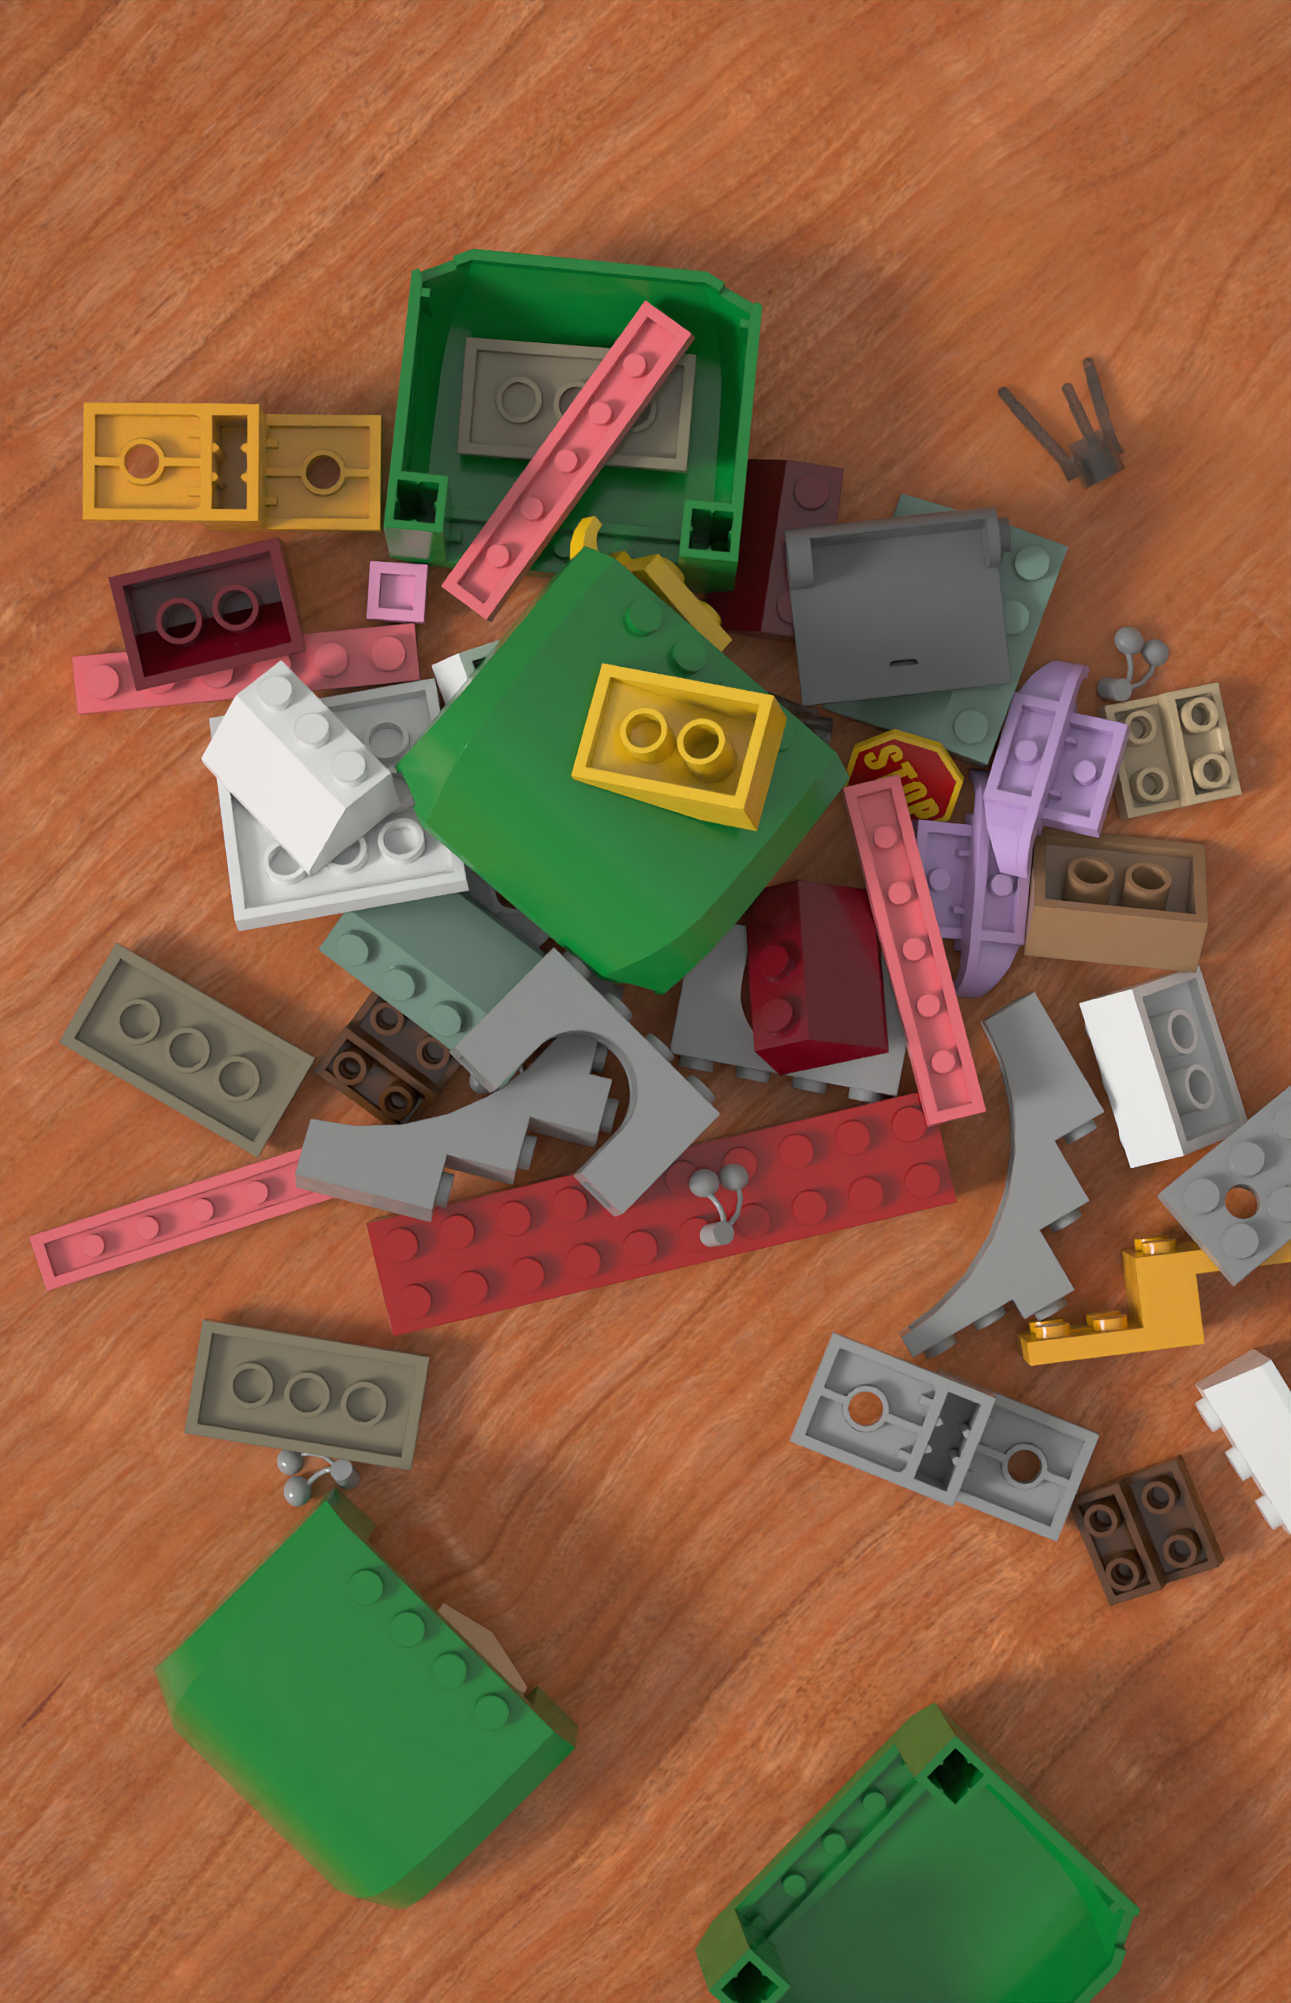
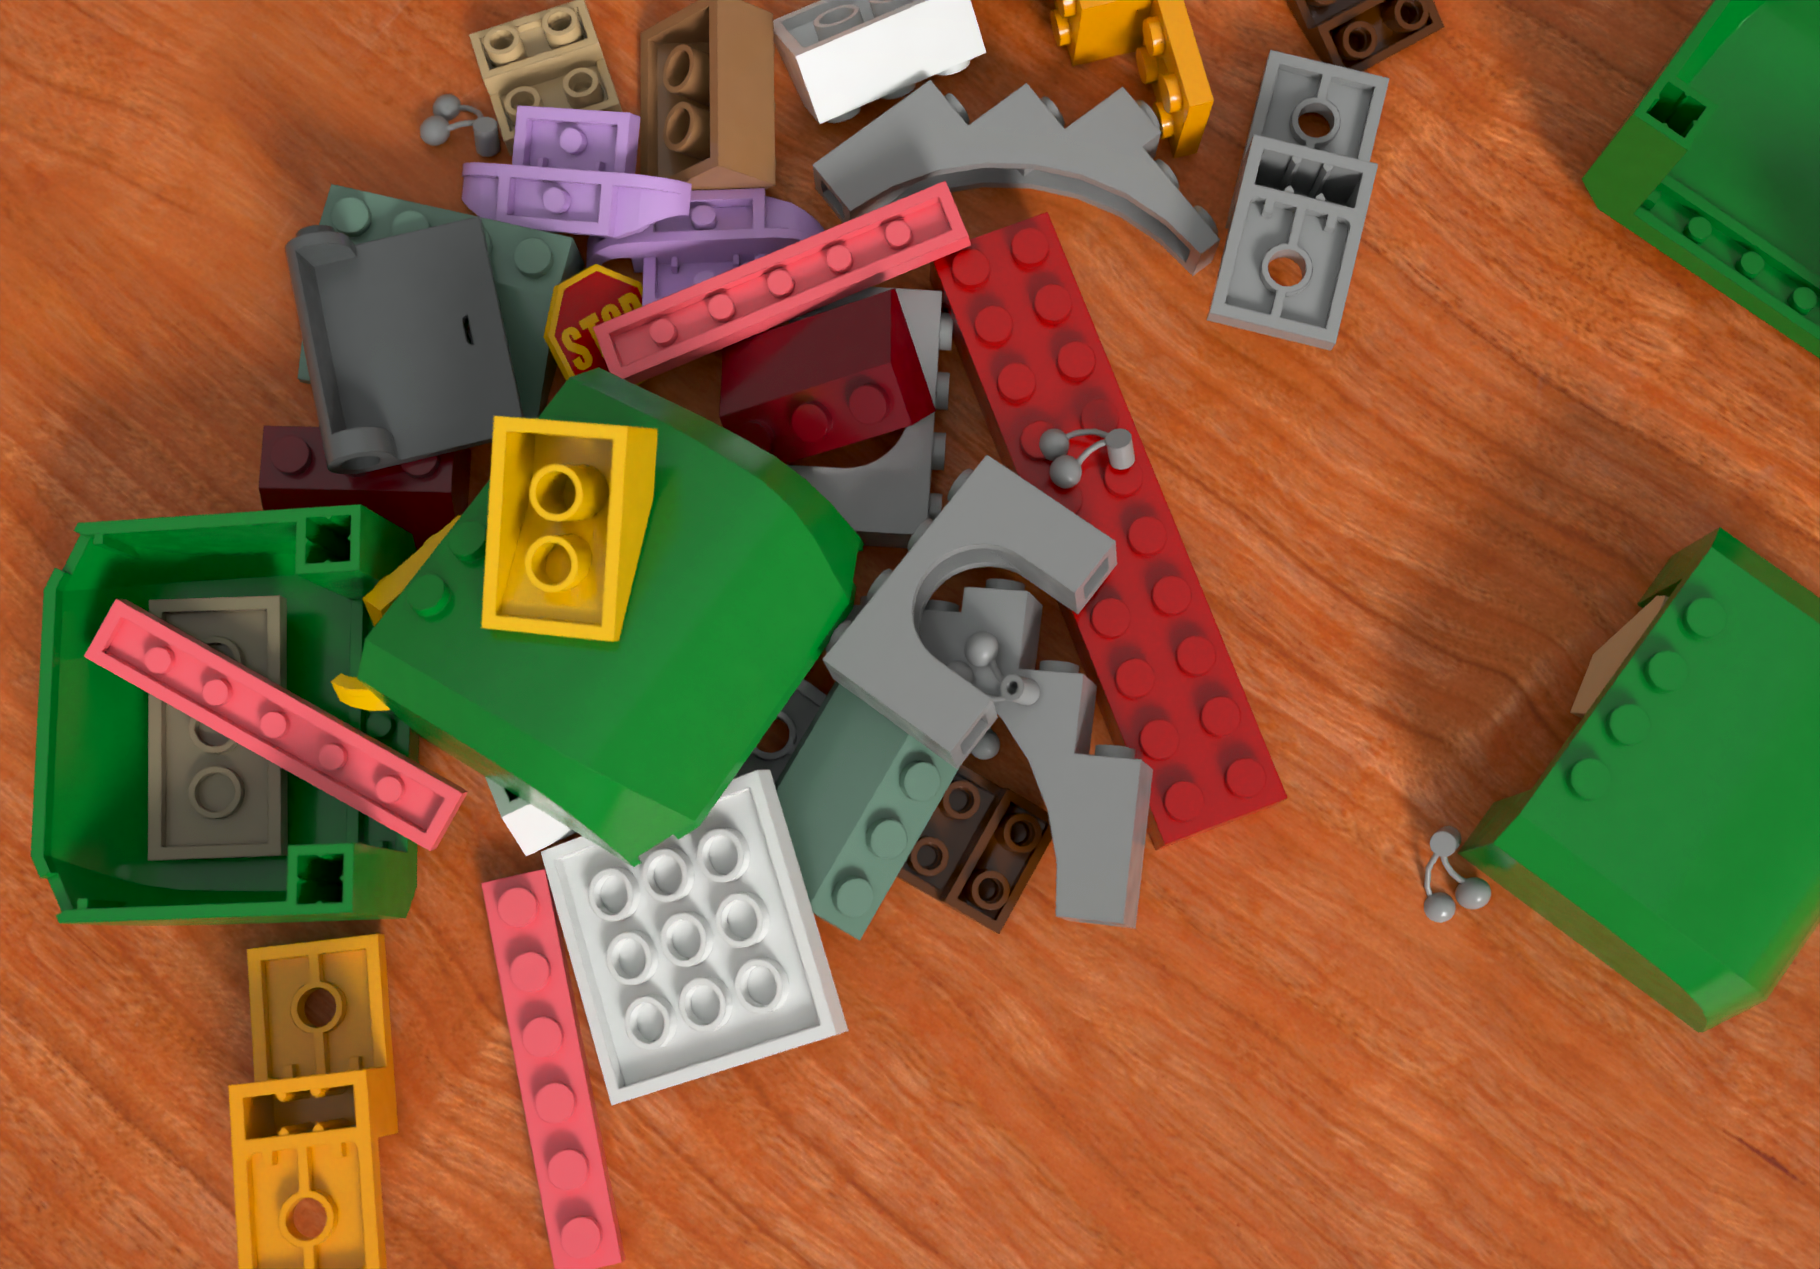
camera: 95 degrees left, 10 degrees down
(171, 1220) = (1190, 1074): coral plate -> none
(187, 1050) = (994, 1083): dark tan plate -> none
(208, 613) = (484, 1119): dark red slope -> none
(299, 769) = (652, 984): white slope -> none
(307, 1394) = (1364, 895): dark tan plate -> none
(397, 592) = (448, 906): bright pink plate -> none
(549, 1087) = (982, 650): none -> light grey piece
(1097, 452) = (240, 185): clear smoke plant -> none

